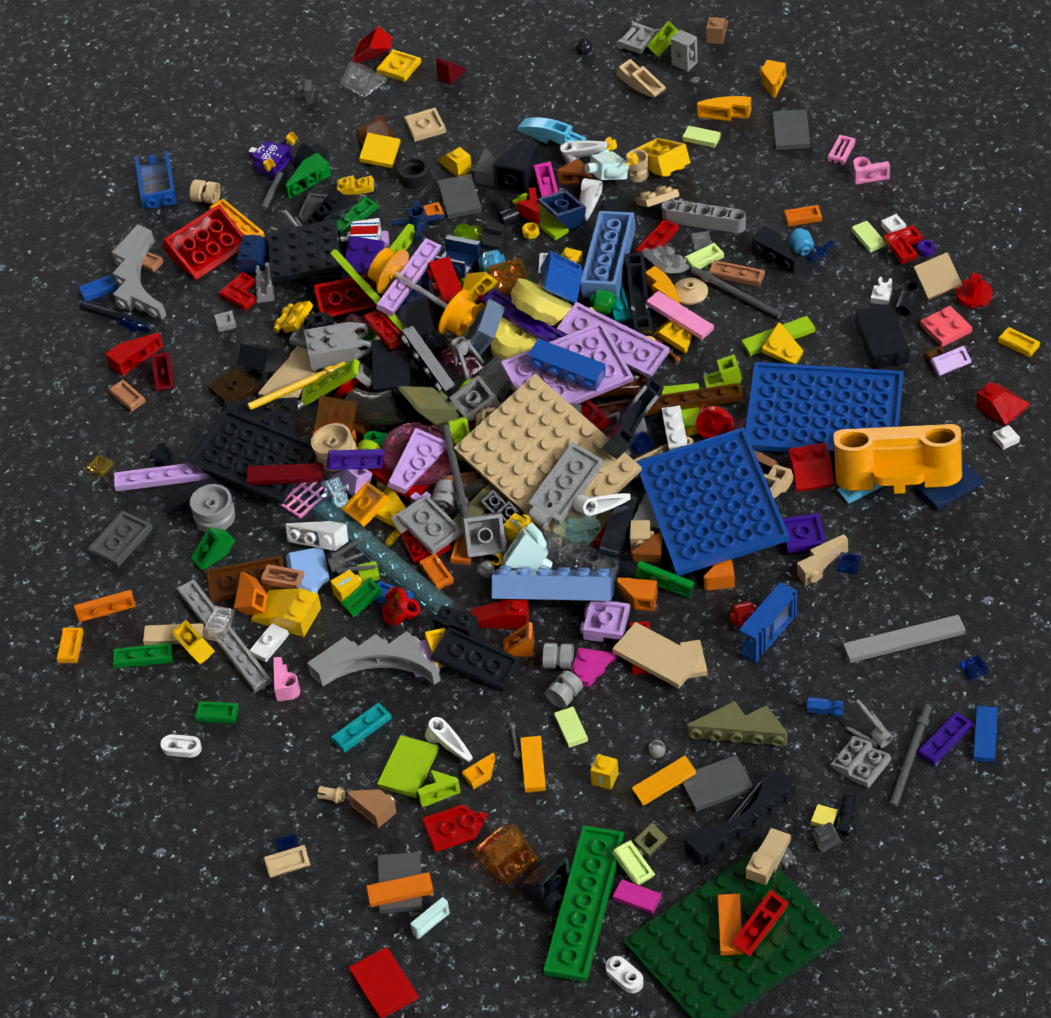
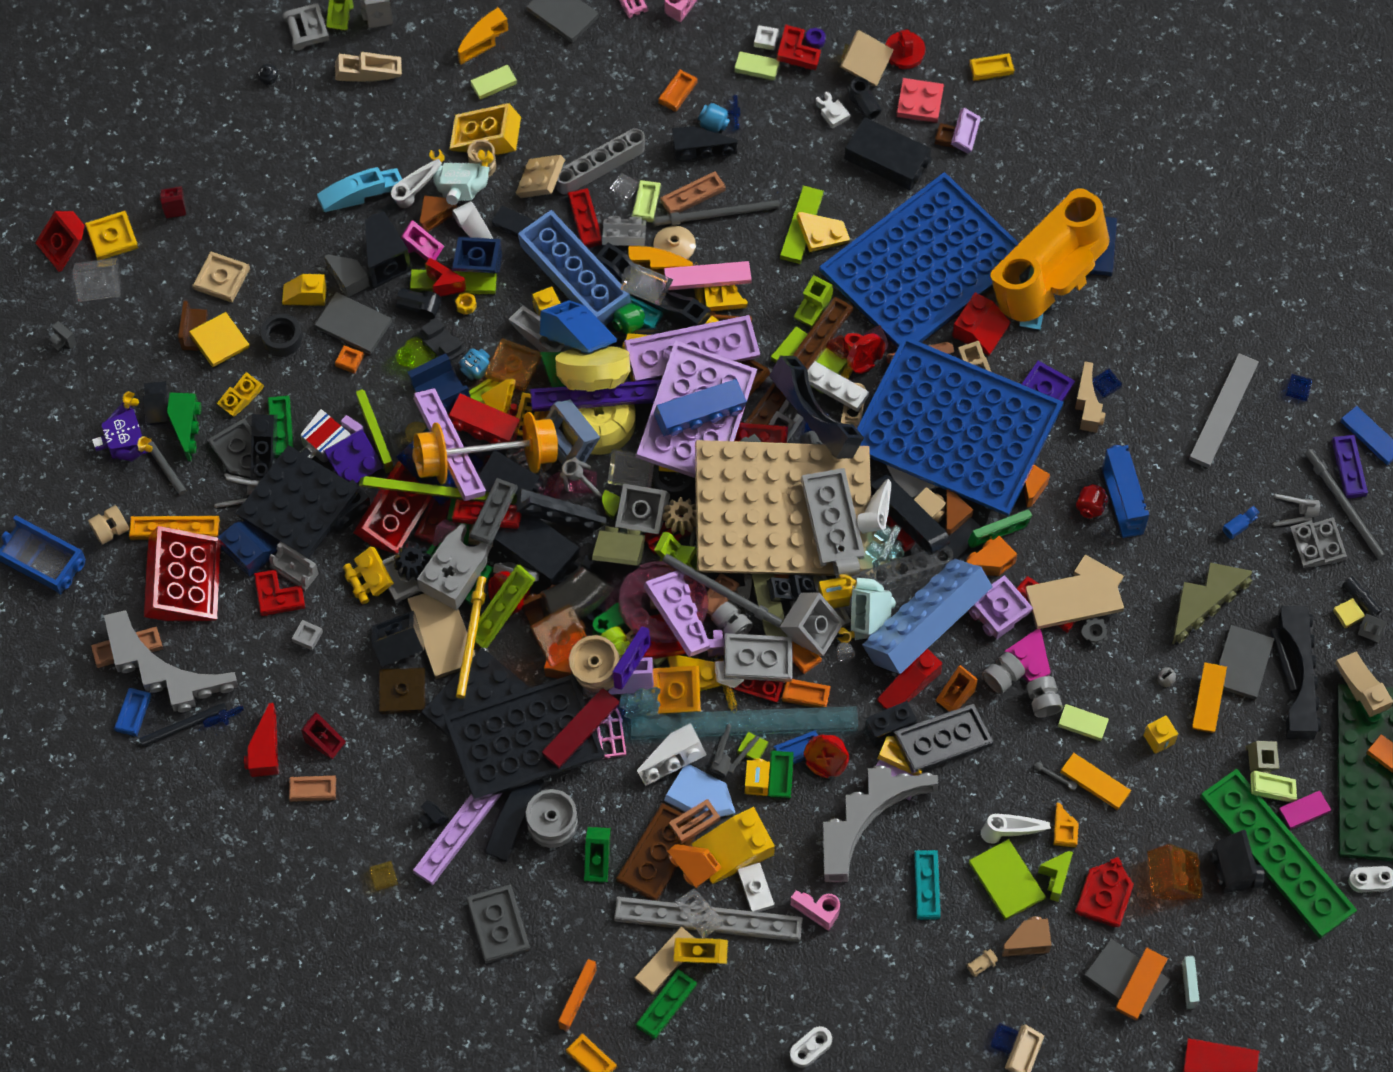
camera: 55 degrees left, 15 degrees up
(216, 712) = (796, 989): green tile -> none
(385, 327) = (493, 511): none -> dark grey tile
(418, 218) = (350, 379): dark blue bar -> none
(629, 285) = (645, 283): none -> clear slope
(643, 681) = (1094, 626): none -> dark grey animal
(1000, 403) = (1047, 136): red slope -> none
(1006, 437) = (1085, 164): white plate -> none

